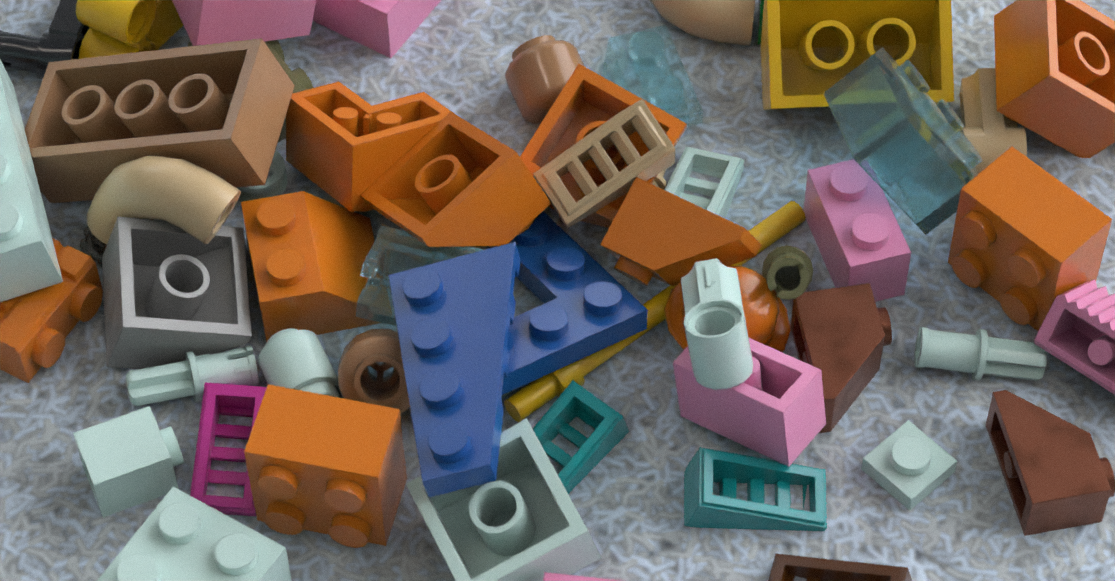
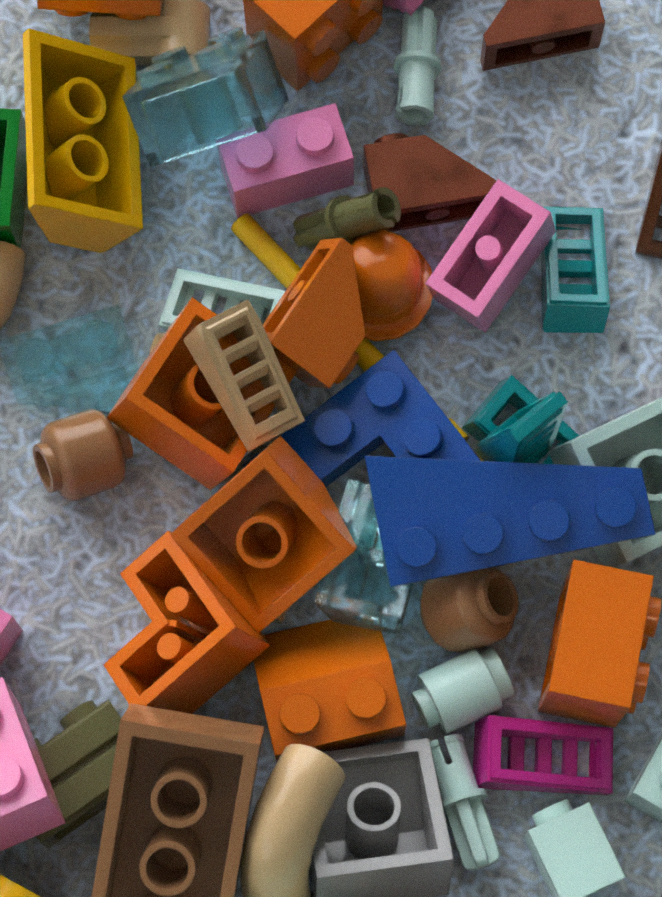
camera: 90 degrees left, 20 degrees up
(541, 394) = (527, 433): none -> teal slope
(716, 325) = (447, 268): light aqua piece -> none
(909, 465) = (535, 134): light aqua plate -> none

